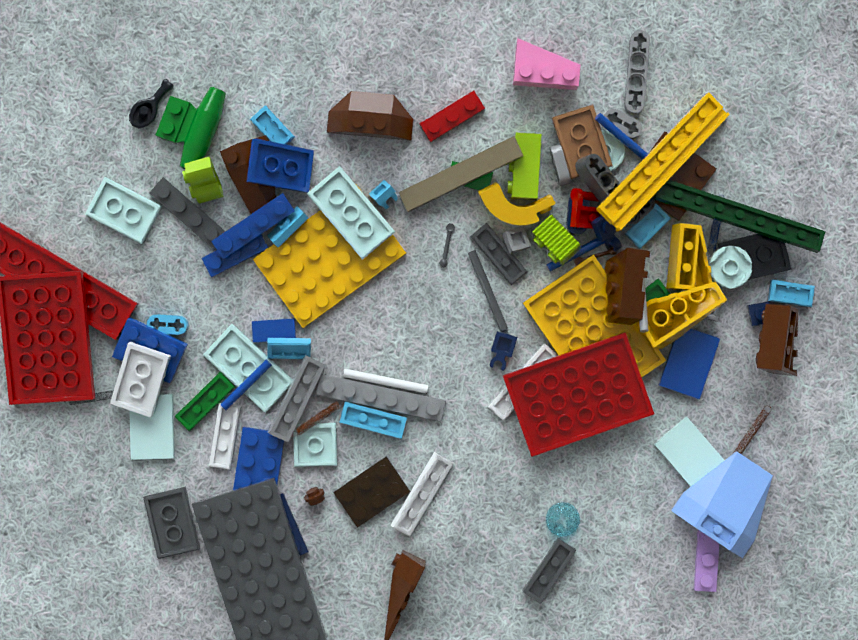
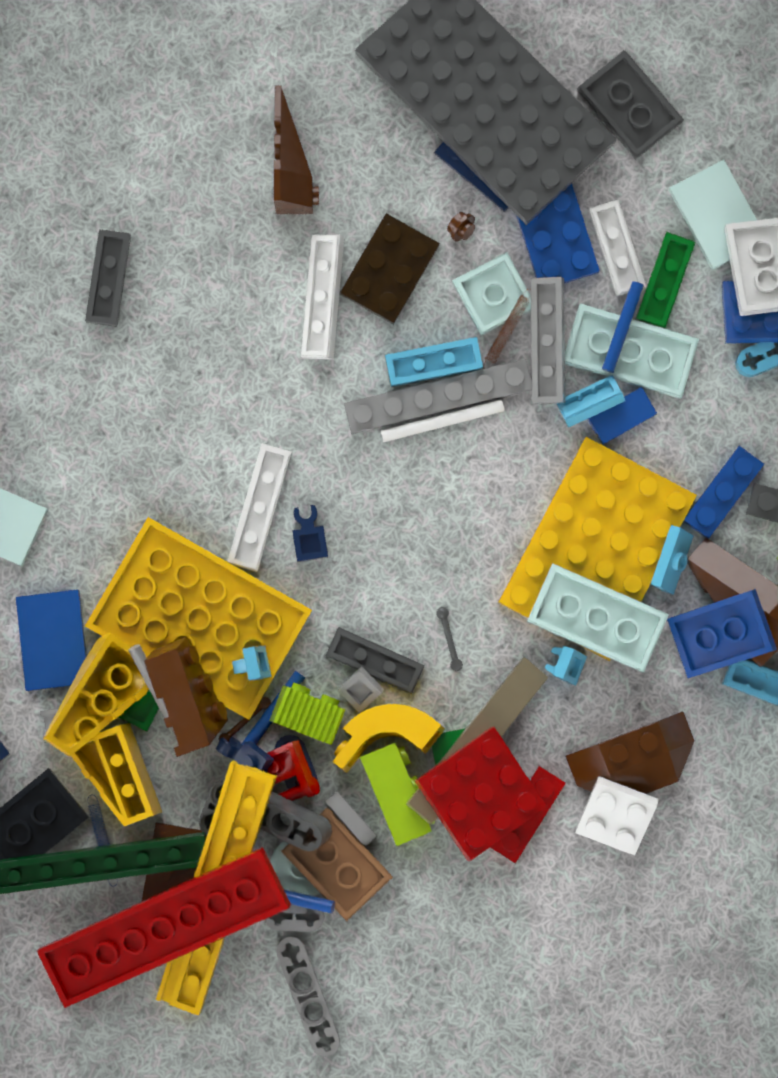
camera: 150 degrees right, 5 degrees down
(253, 225) = (717, 537): blue plate -> none
(398, 88) = (616, 815): none -> white plate
(475, 140) = (480, 793): none -> red plate
(487, 290) = (365, 605): dark grey bar -> none
(543, 68) = (436, 937): bright pink wedge -> none
(567, 510) = (121, 368): clear light blue gear -> none
(574, 286) = (254, 663): none -> medium azure tile
(578, 394) = (180, 523): red plate -> none
(647, 227) = (193, 793): medium azure plate -> none
(705, 152) = (164, 927): none -> red plate
(730, 267) = (57, 791): light aqua tile -> none

